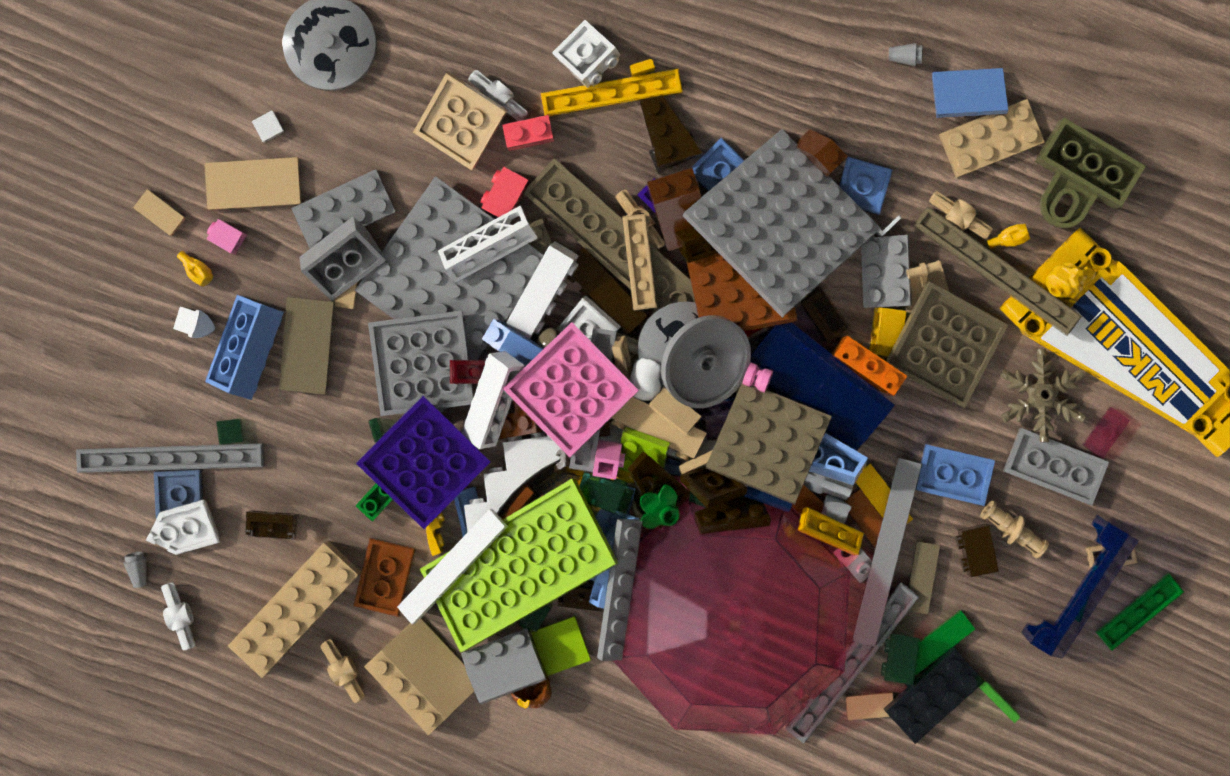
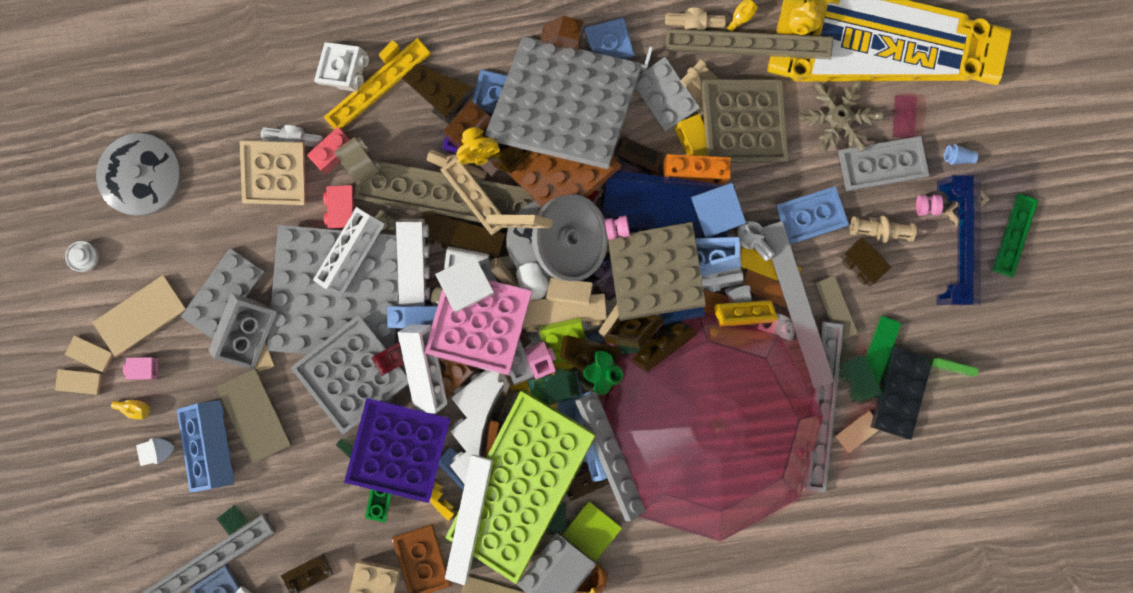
camera: 35 degrees left, 5 degrees down
(184, 191) = (89, 354): none -> tan tile
(230, 92) = (81, 256): none -> white plate
(268, 126) = (126, 265): white tile -> none
(548, 161) = (356, 160): none -> dark tan brick
(579, 345) = (464, 284): none -> white tile
(666, 318) = (519, 221): none -> tan tile
(669, 218) = (476, 147): none -> yellow plate
(864, 418) = (718, 210): none -> medium blue tile
(883, 459) = (752, 237): none -> white axle
(1074, 533) = (928, 205): none -> bright pink wheel
(1135, 502) = (959, 155): none -> light blue cone

